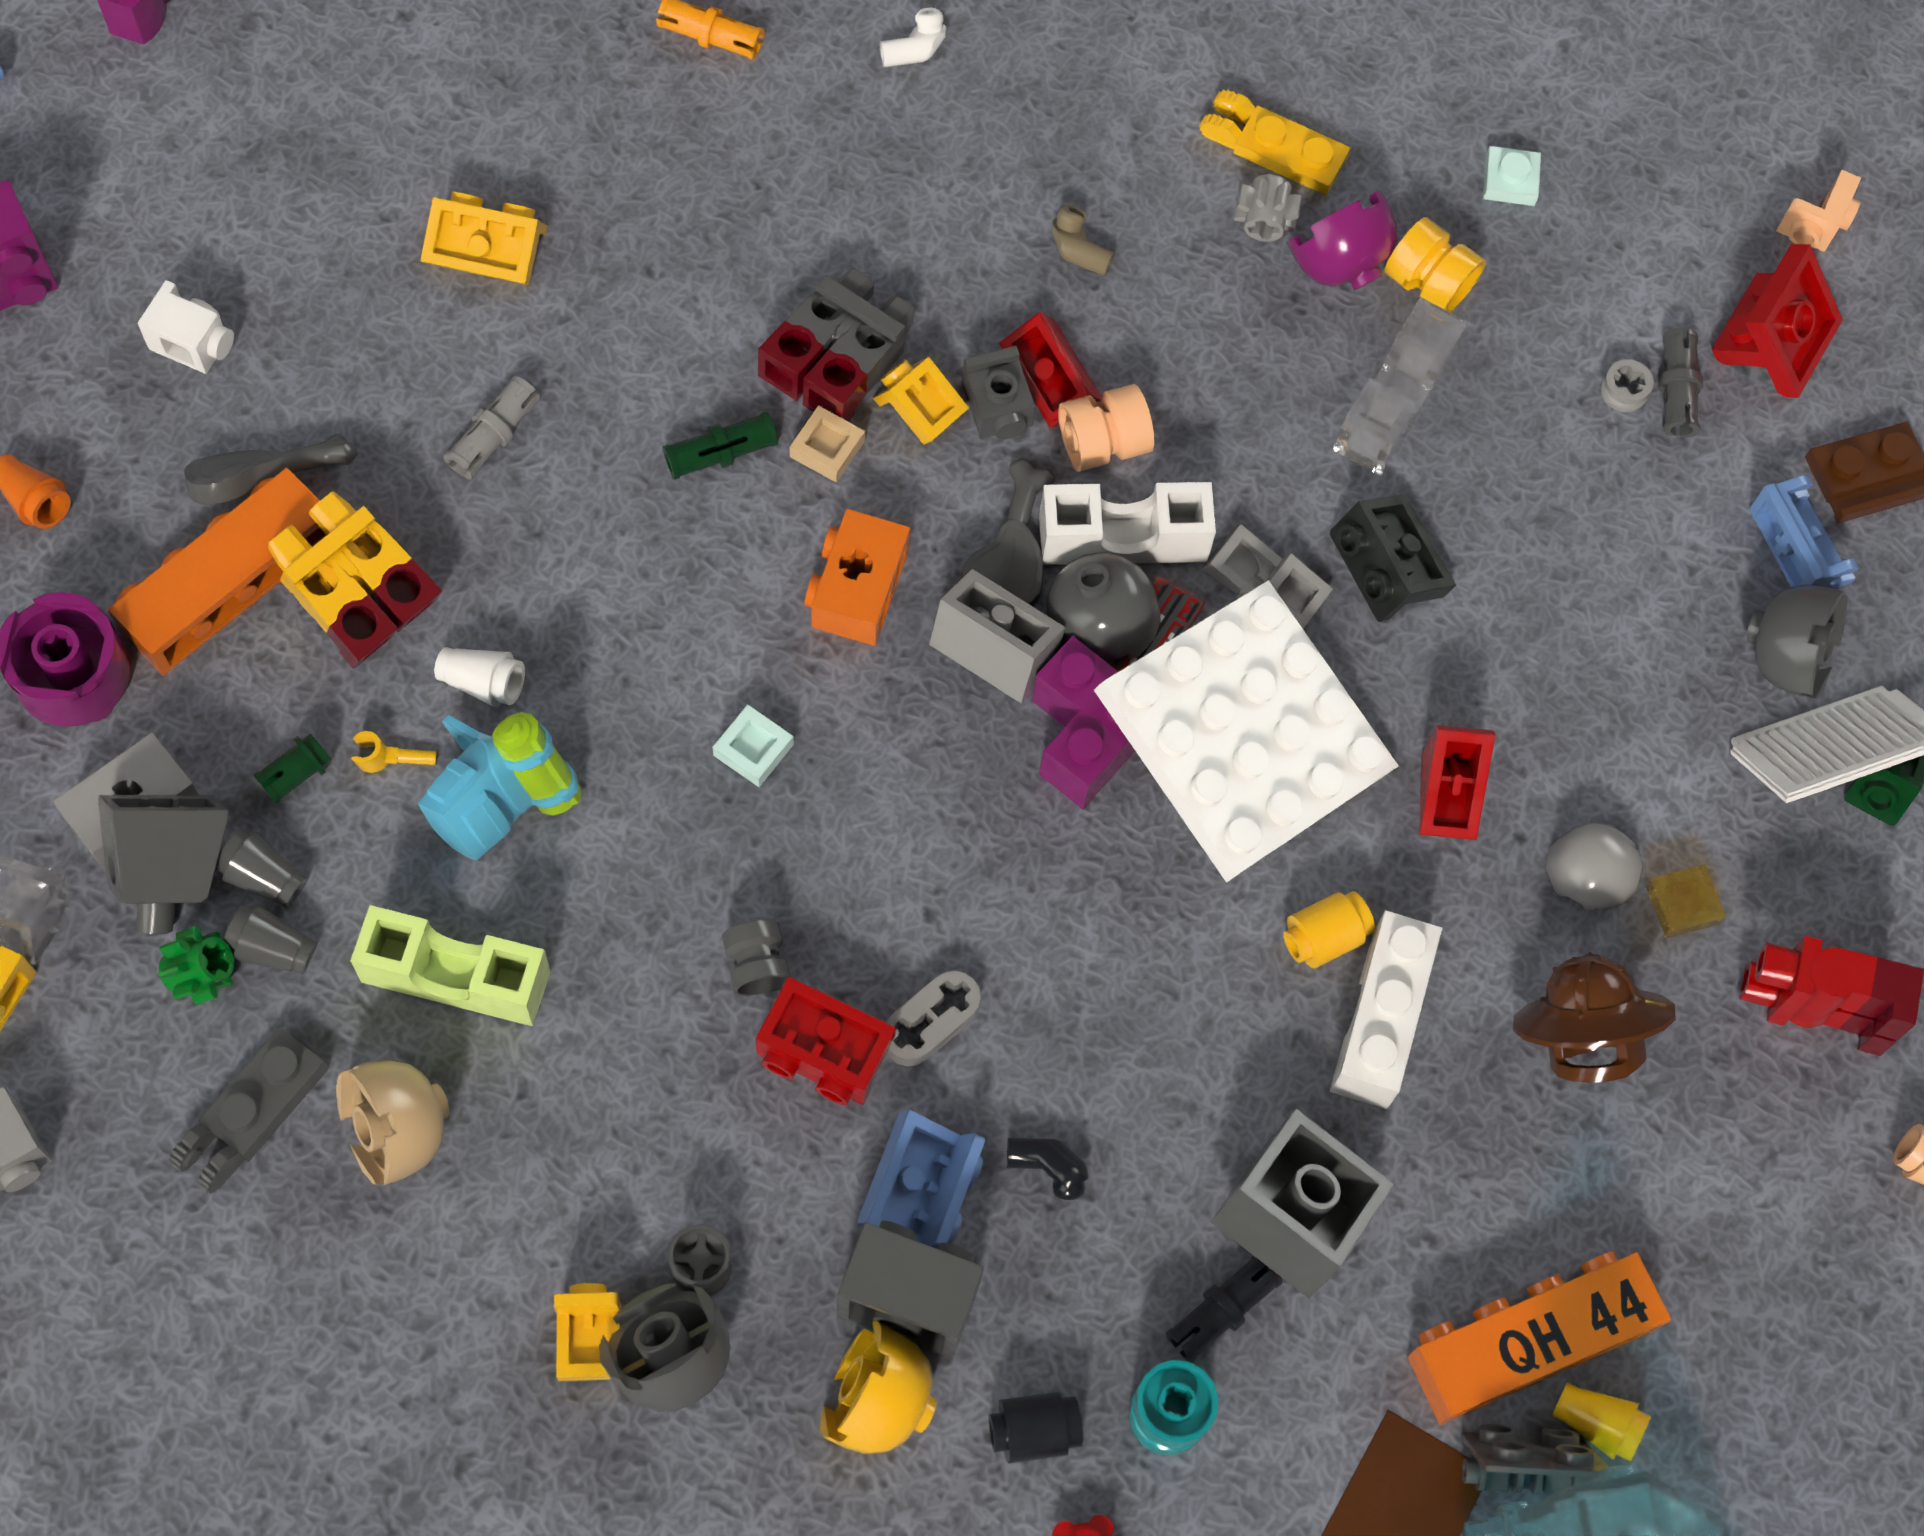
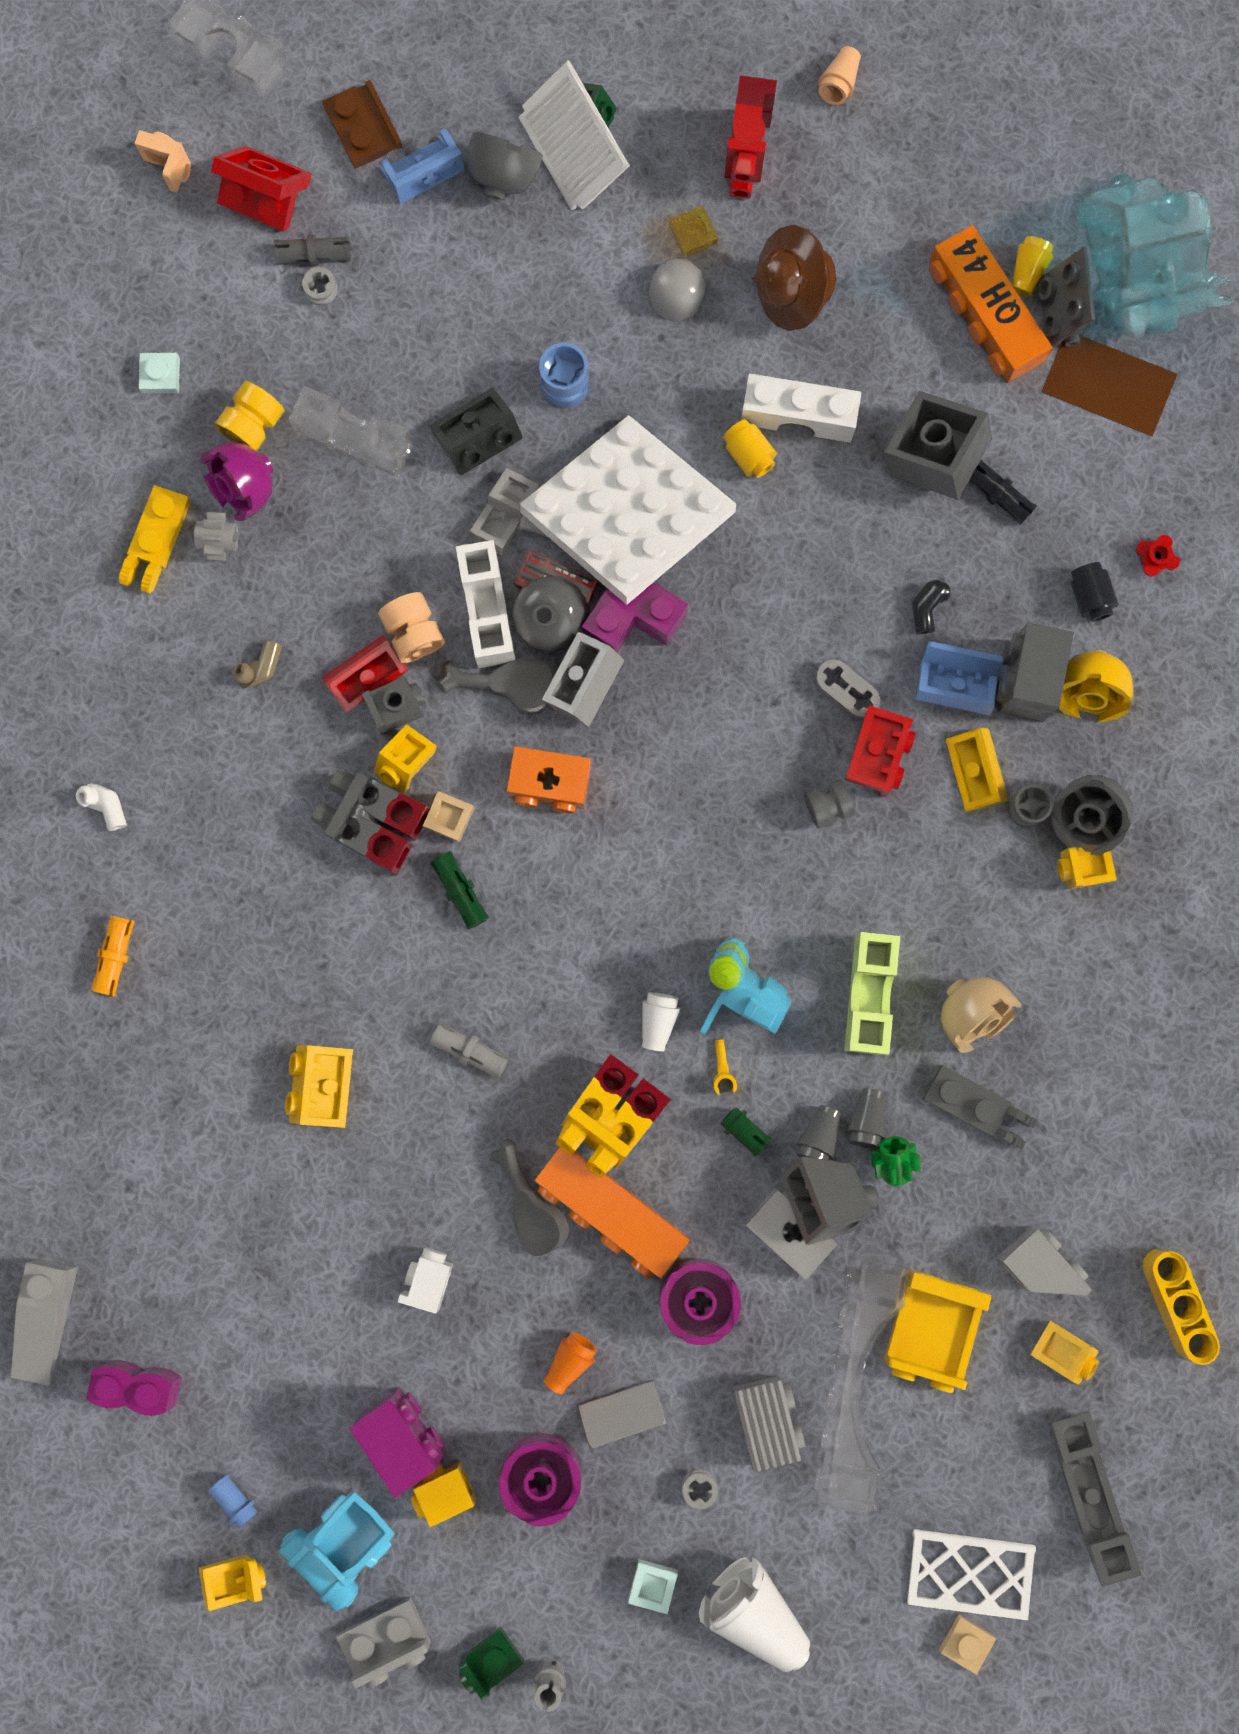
camera: 90 degrees left, 15 degrees up
(753, 745) = (681, 830): light aqua plate -> none
(776, 1199) = (977, 769): none -> yellow slope
(1173, 1407) = (1071, 520): teal wheel -> none
(1454, 781) = (638, 378): red slope -> none
(1464, 676) = (564, 375): none -> medium blue wheel

